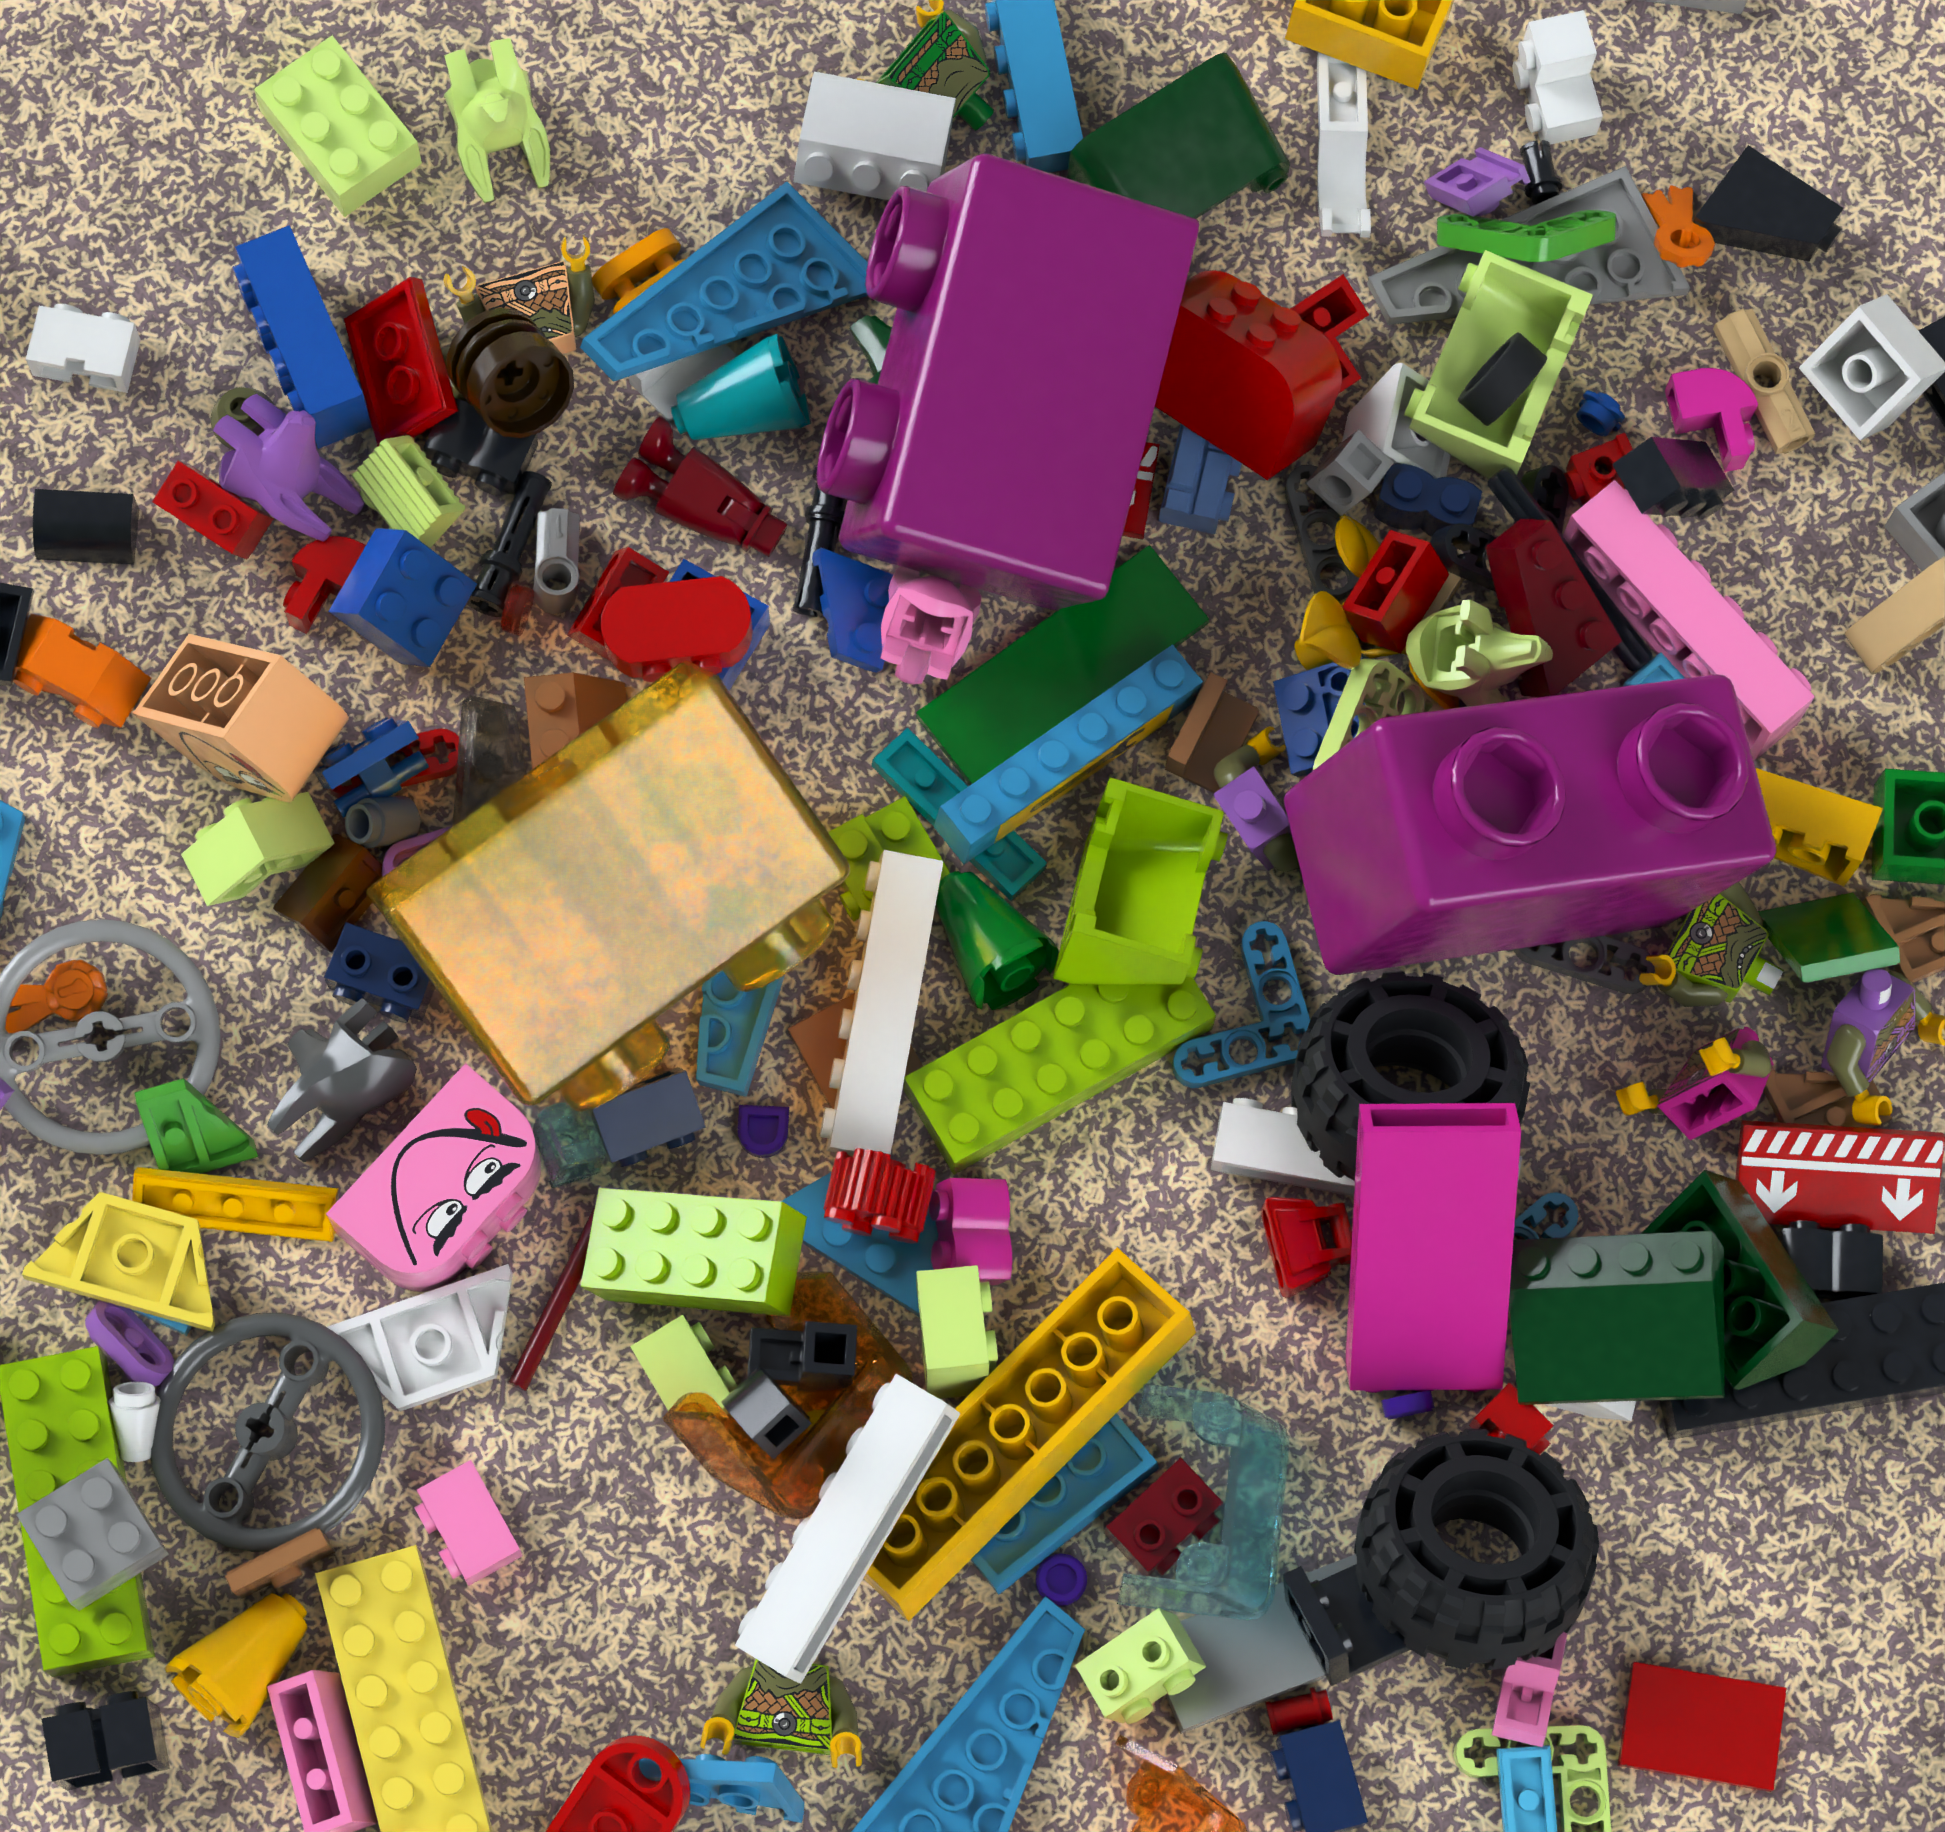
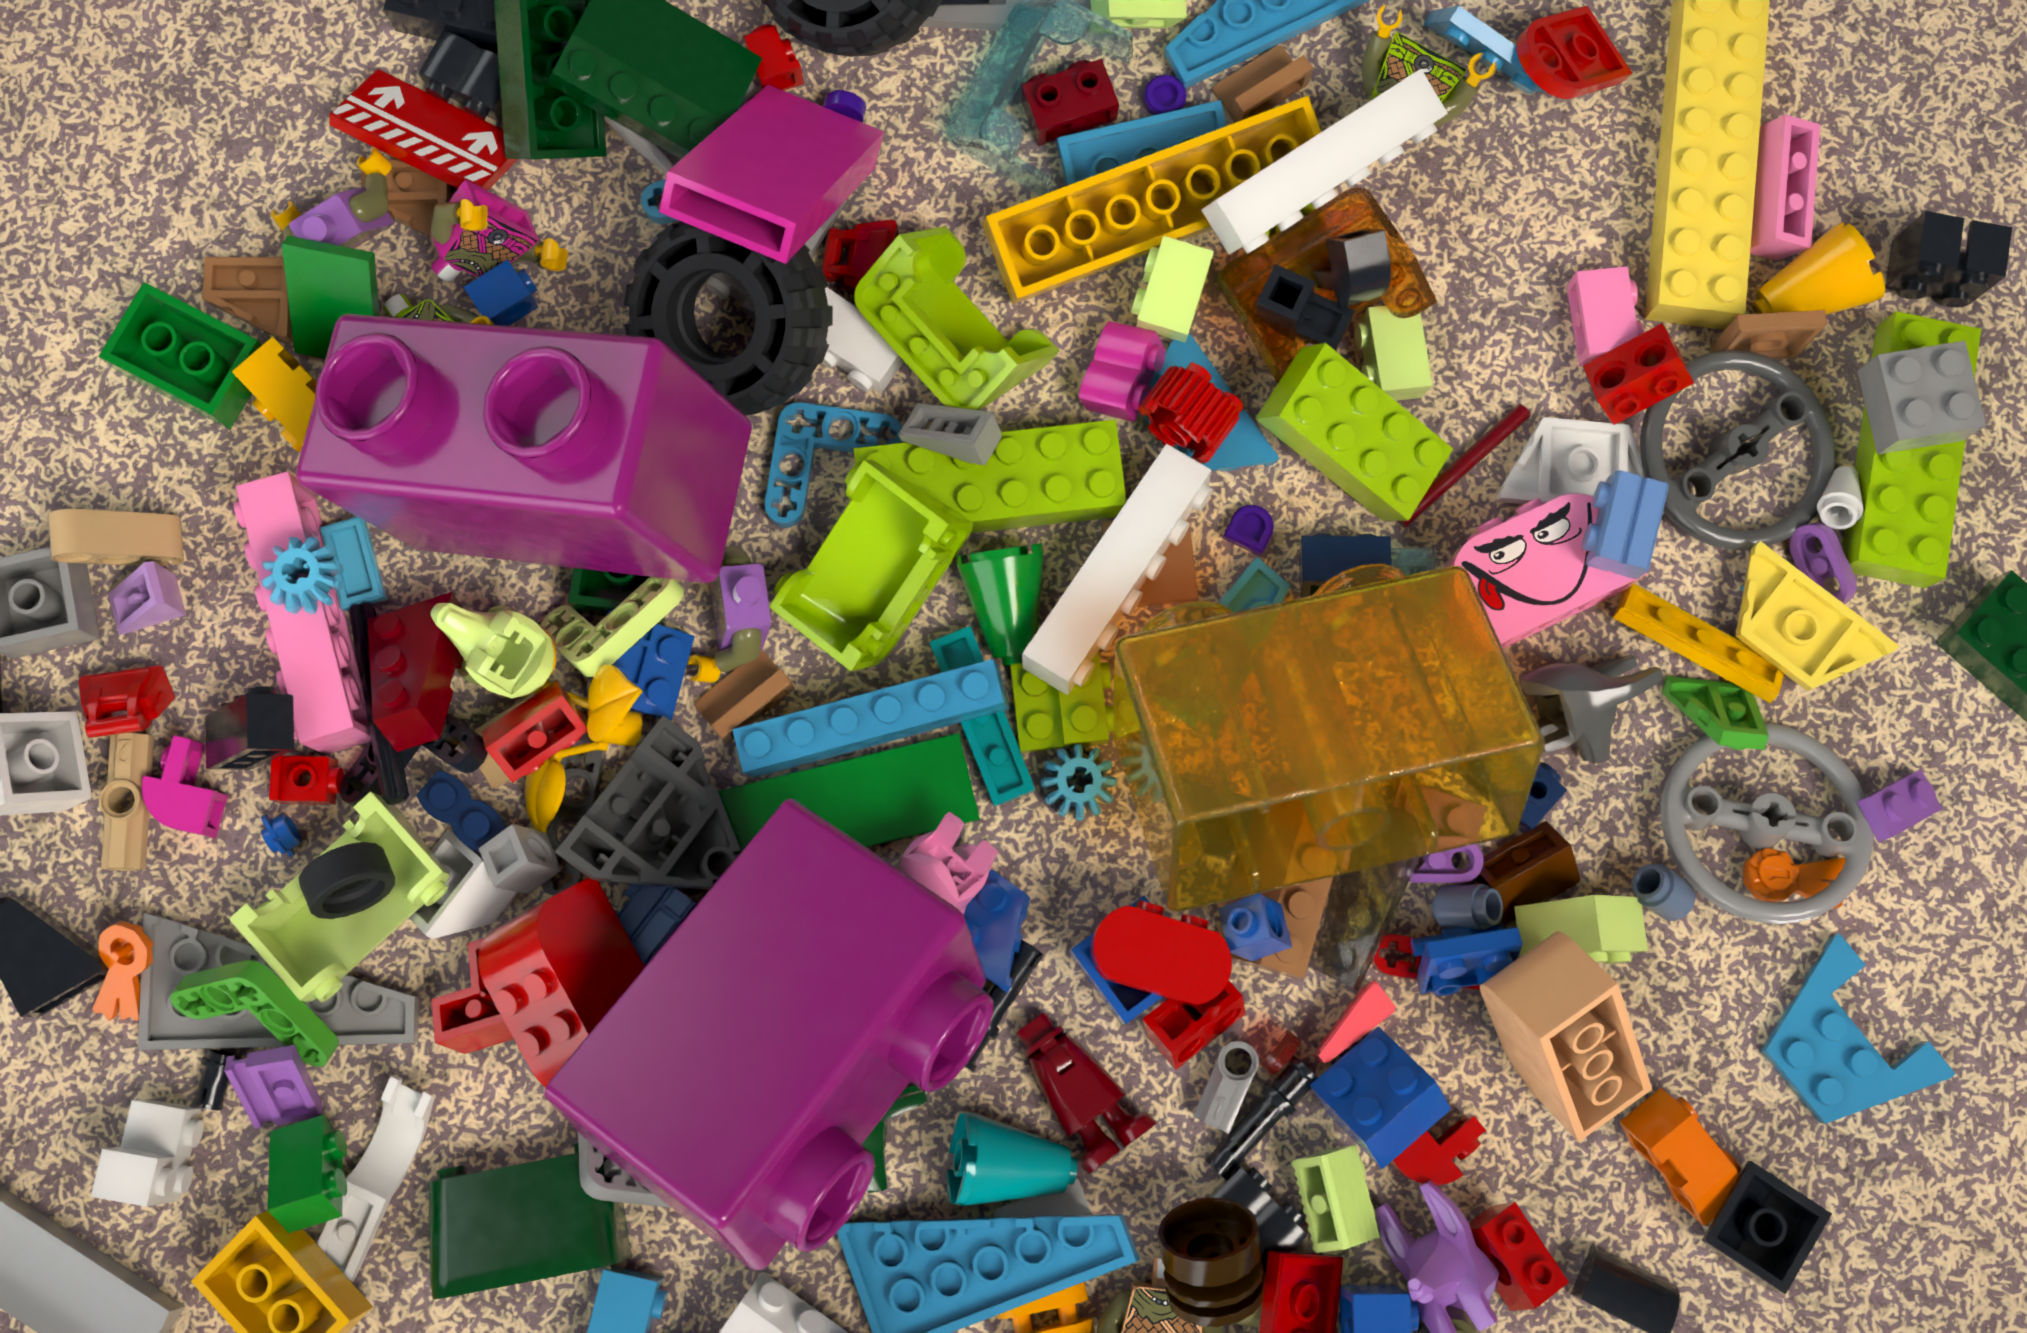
camera: 155 degrees left, 5 degrees up
(187, 919) = (1663, 891): none -> sand blue brick
(369, 1243) = (1625, 524): none -> medium blue brick
(409, 1454) = (1638, 374): none -> red brick
(448, 677) = (1362, 1014): none -> coral slope
(593, 694) = (1255, 927): none -> blue brick
(851, 786) = (1066, 773): none -> medium azure gear
(959, 1641) = (1263, 83): none -> medium nougat panel
(1089, 1067) = (974, 446): none -> light grey slope
(1175, 1189) = (938, 328): none -> lime windscreen
(1234, 564) = (656, 819): none -> dark grey wedge
(1404, 119) = (306, 1174): none -> green brick
(1666, 1036) = (503, 294): none -> blue brick
(1705, 615) = (304, 591): none -> medium azure gear
(1822, 472) = (124, 700): none -> red piece
(1856, 579) = (146, 598): none -> lavender slope

